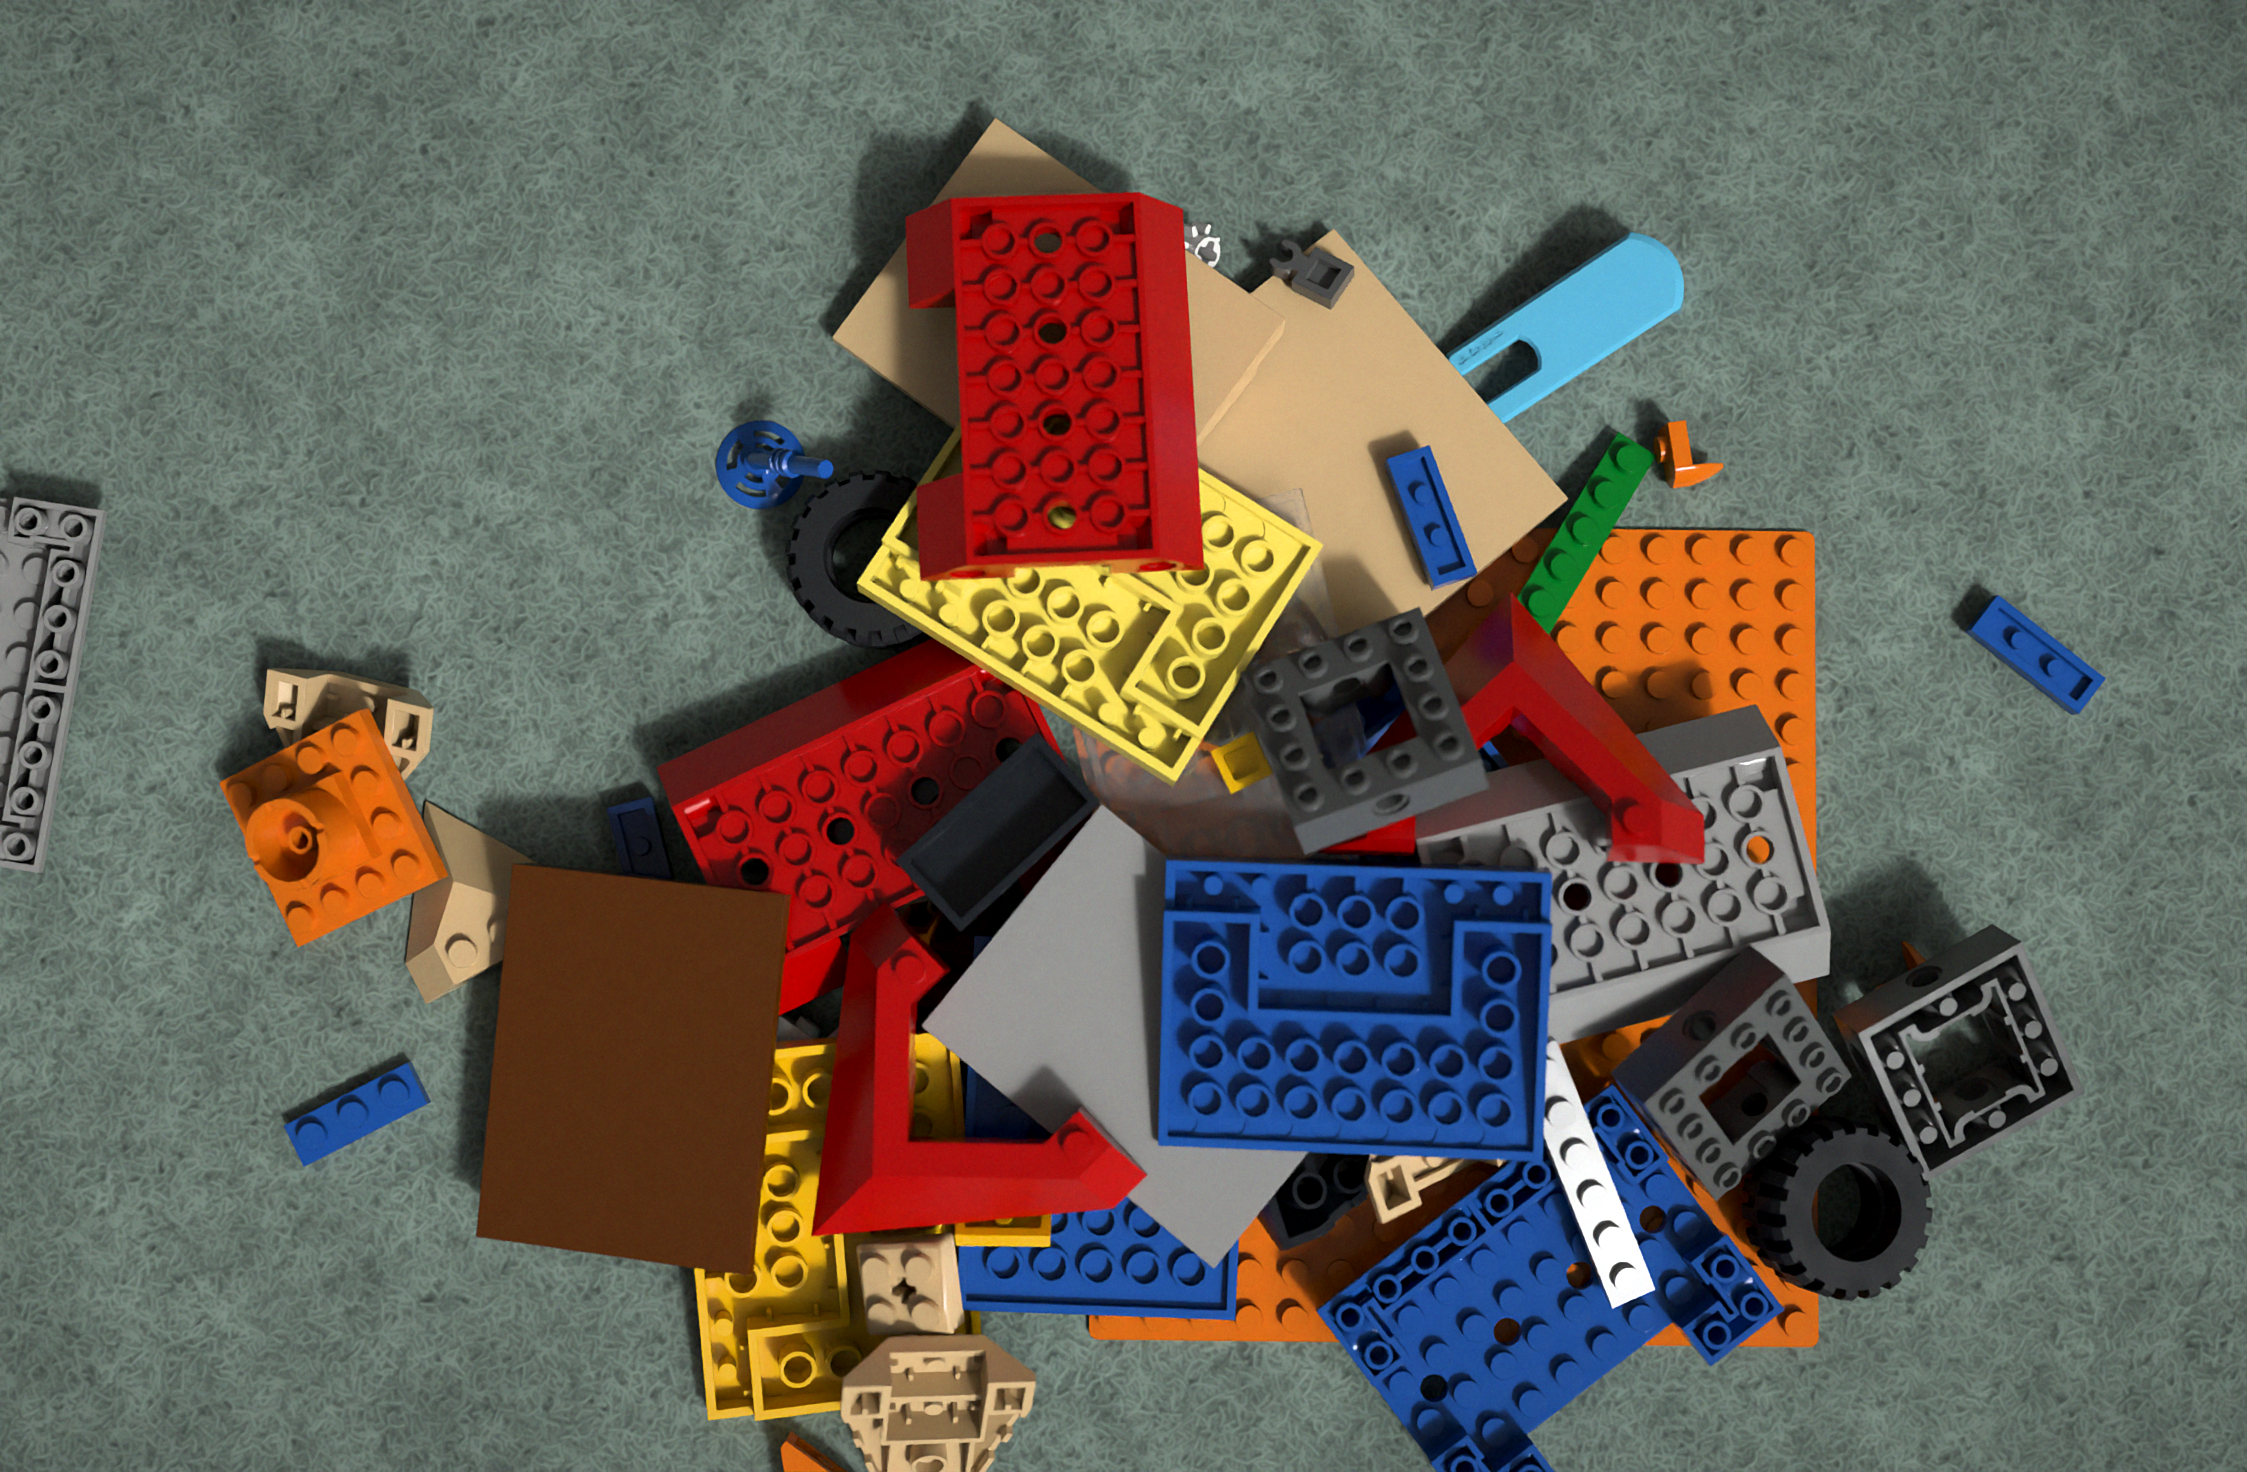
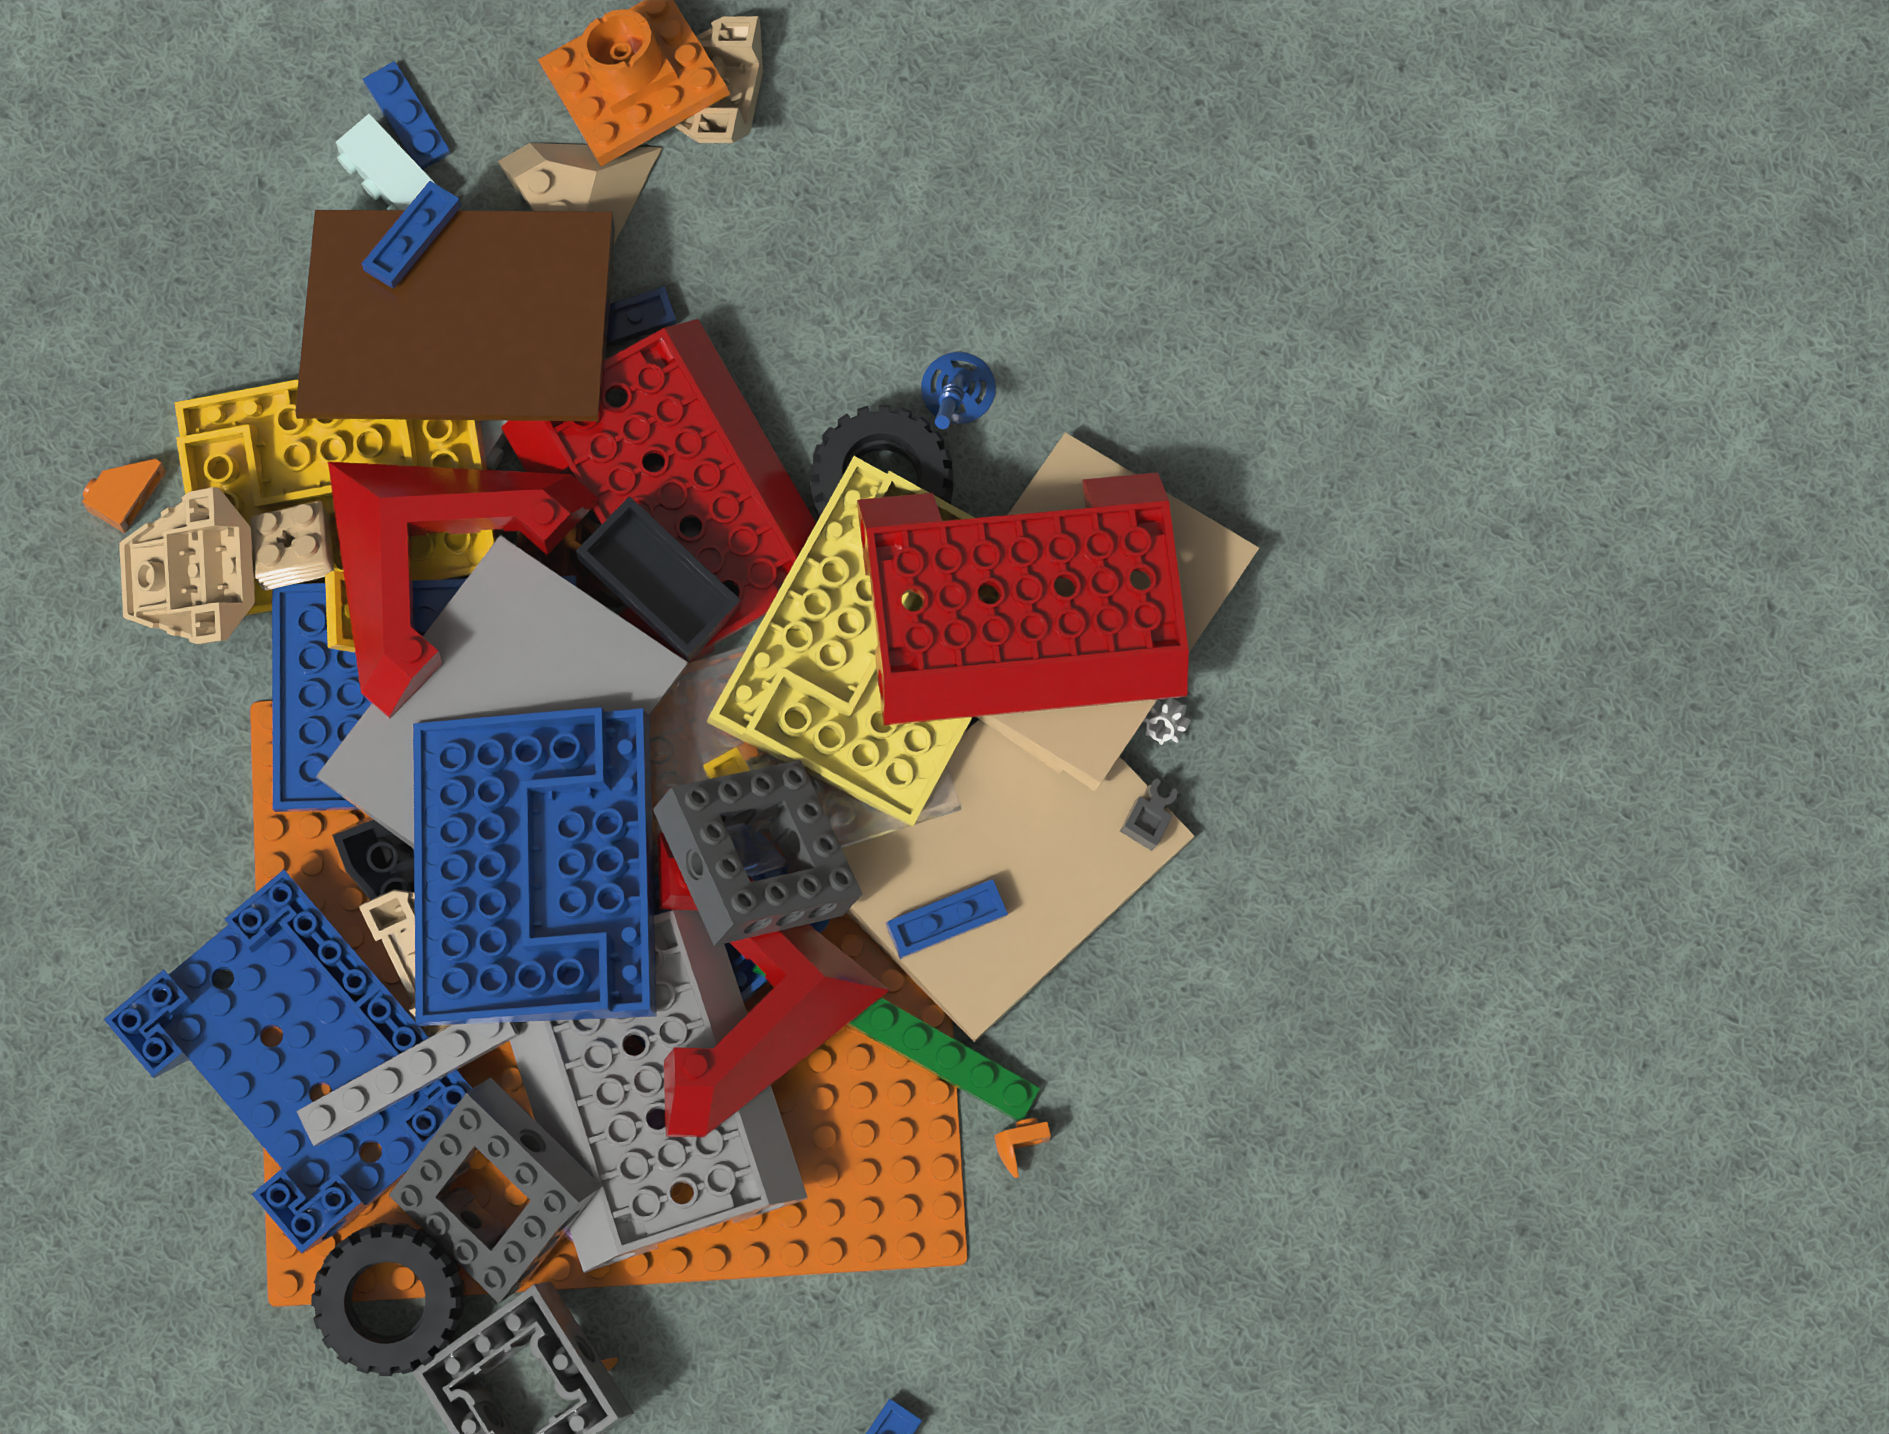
camera: 90 degrees right, 10 degrees down
(427, 1141) = (381, 163): none -> light aqua brick
(522, 1117) = (411, 234): none -> blue plate
(1580, 319) = (1134, 1048): medium azure piece -> none

